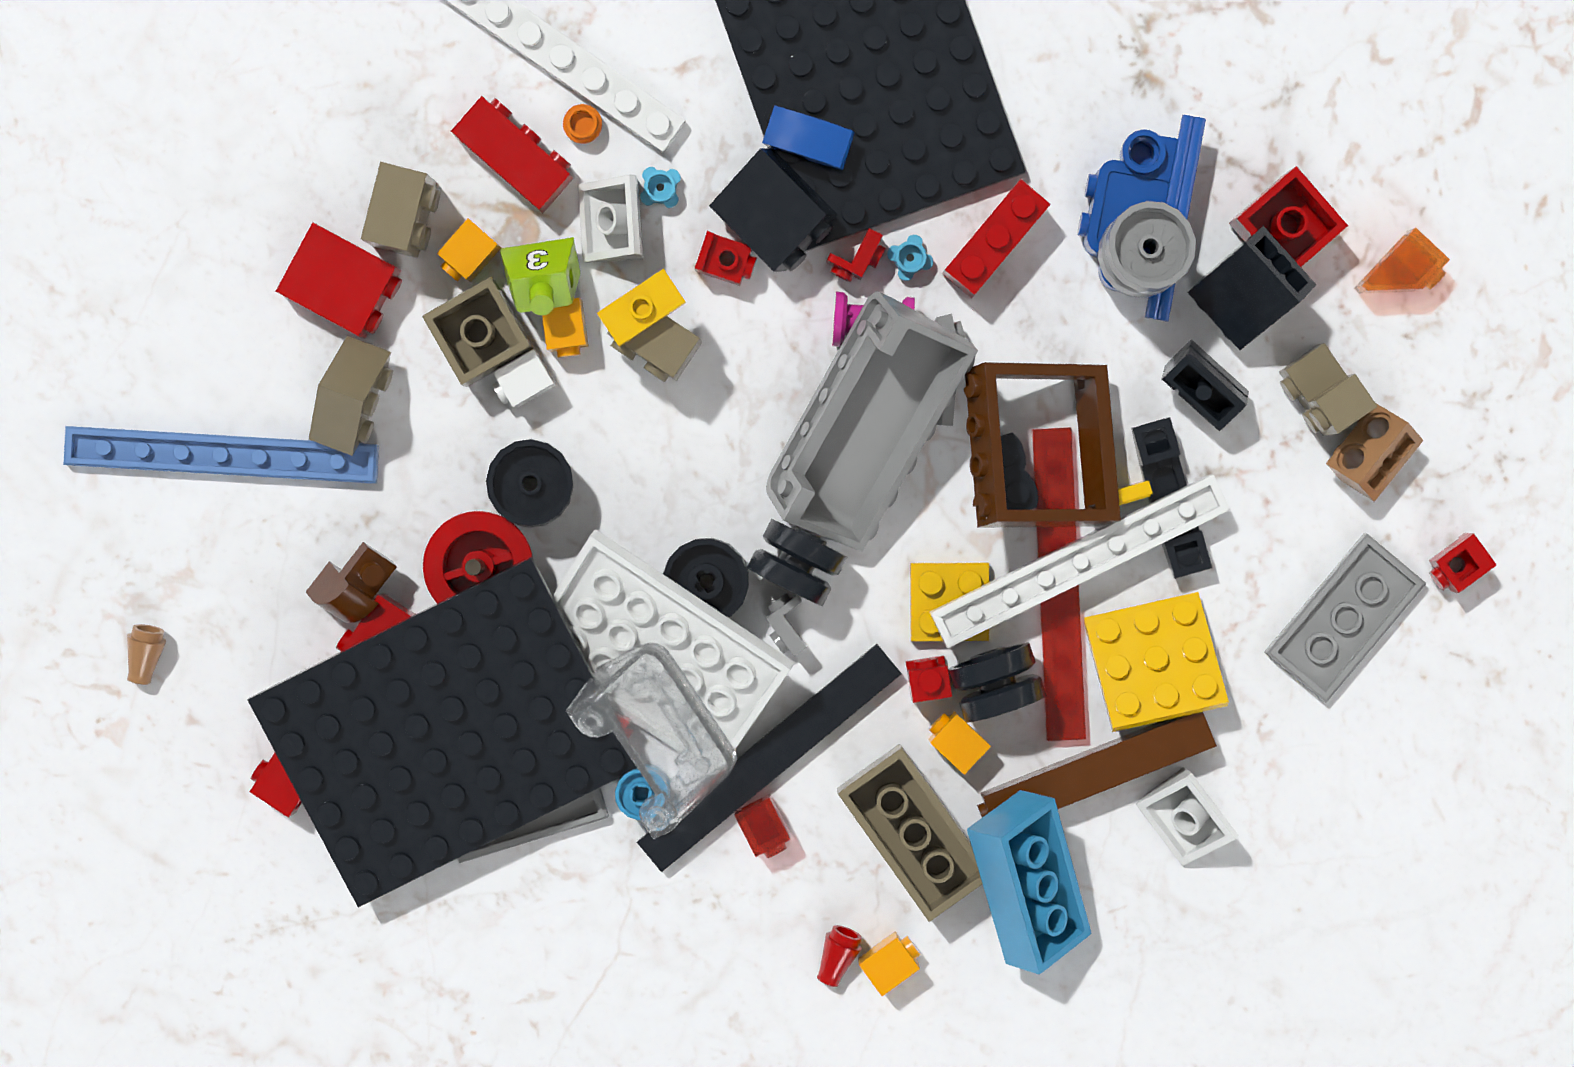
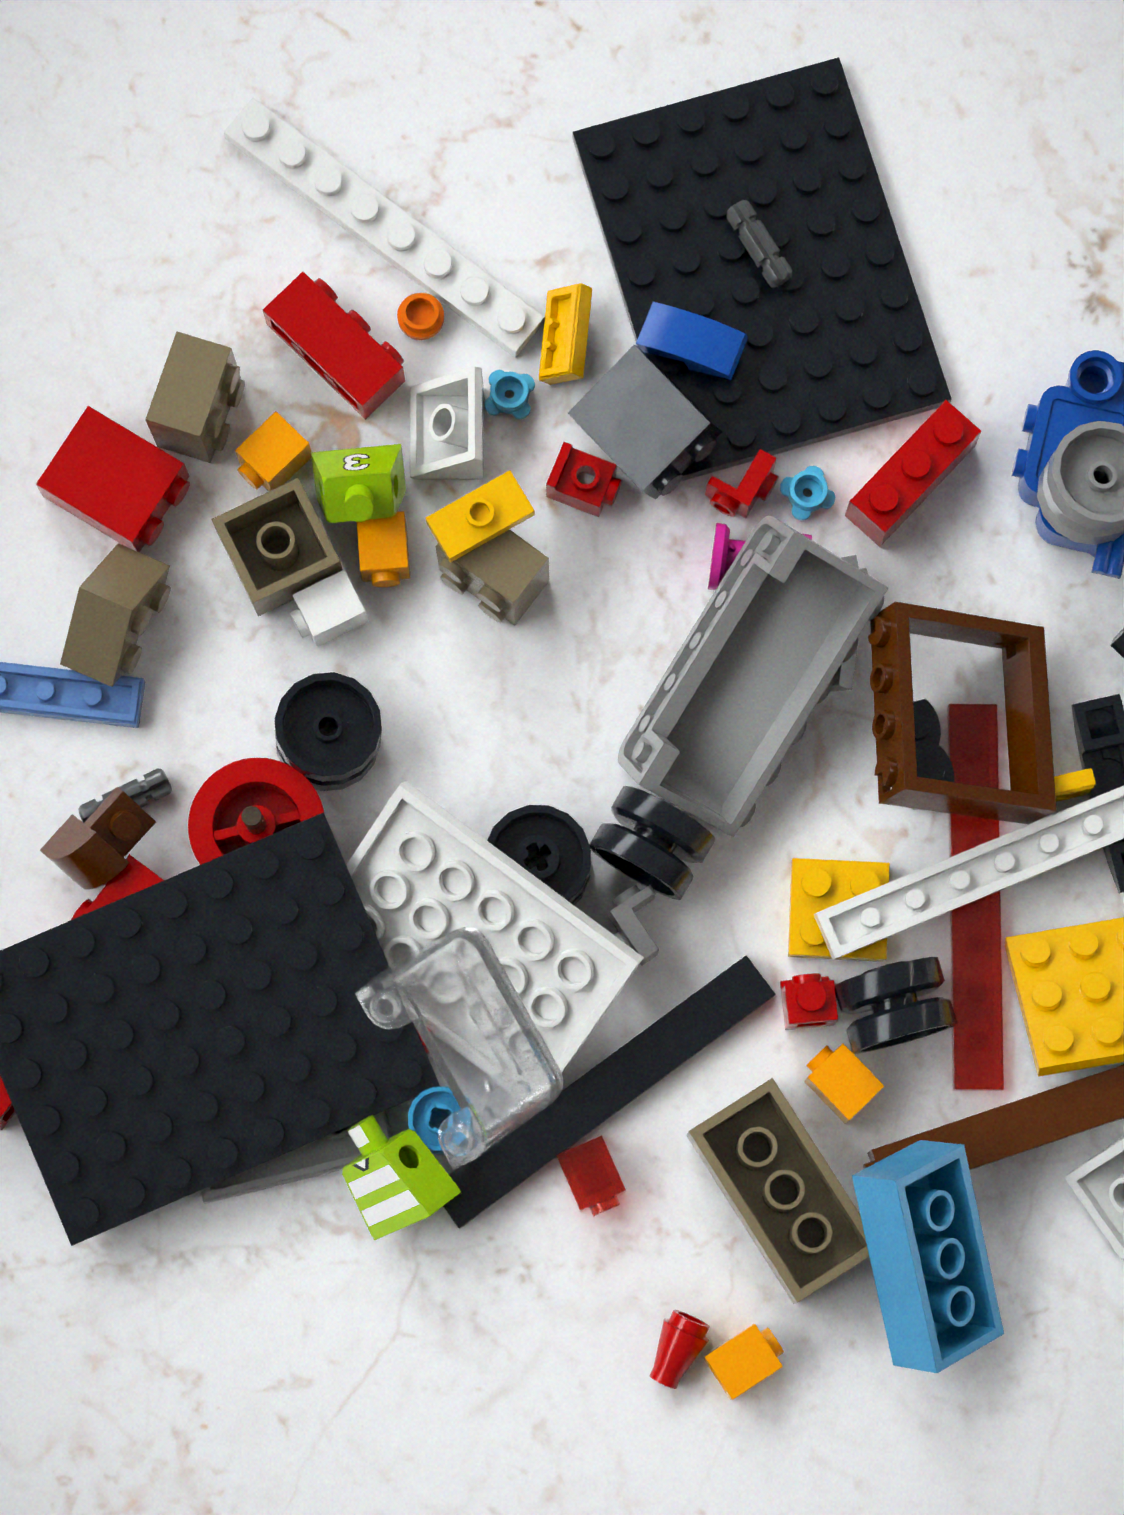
camera: 10 degrees right, 10 degrees down
(377, 539) = (154, 786): none -> dark grey axle
(608, 842) = (395, 1178): none -> lime torso
(703, 134) = (565, 334): none -> yellow plate
(860, 49) = (759, 243): none -> dark grey axle

